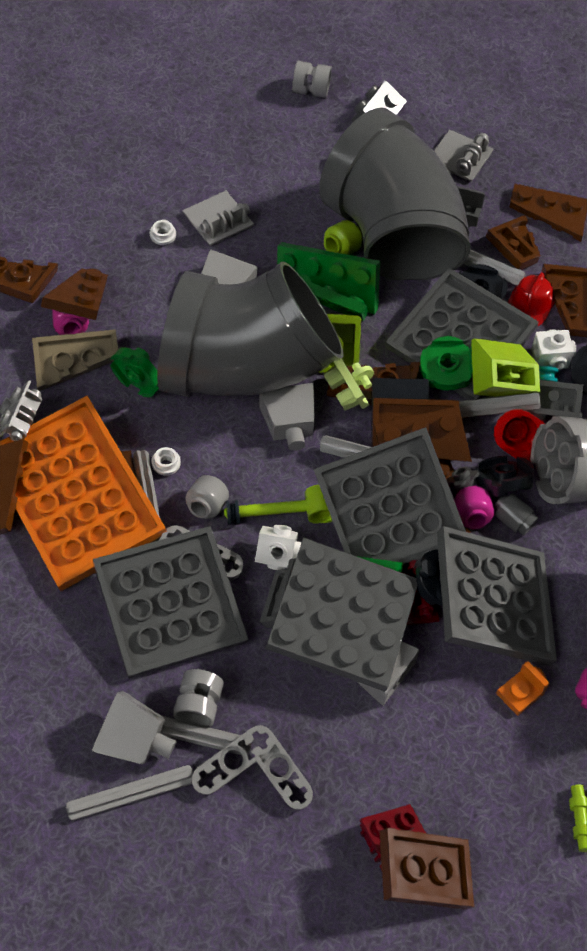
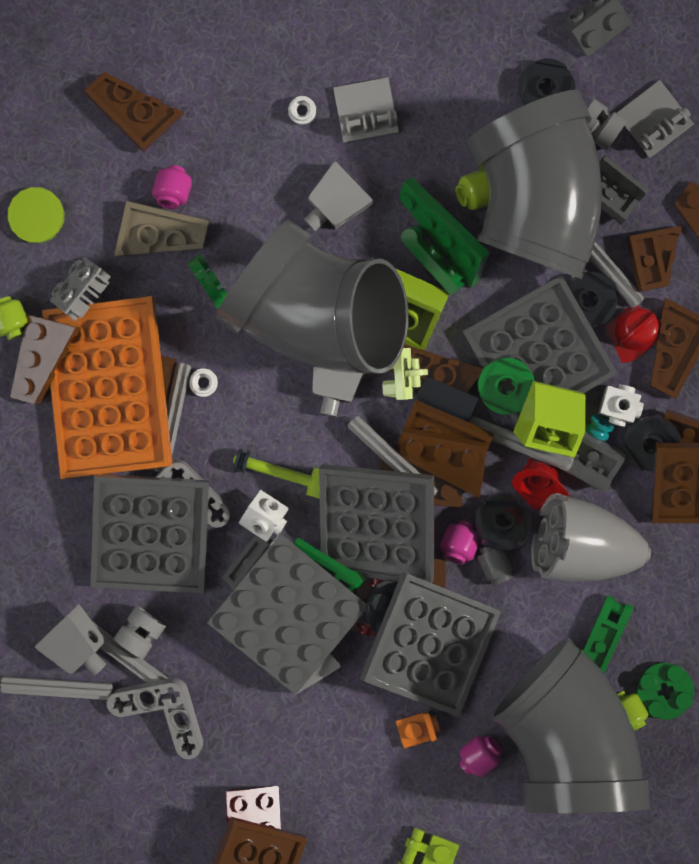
camera: 30 degrees right, 30 degrees up
(78, 294) = (187, 171): reddish brown wing -> none
(207, 497) = (224, 438): light grey head -> none
(463, 478) = (462, 512): dark grey plate -> none

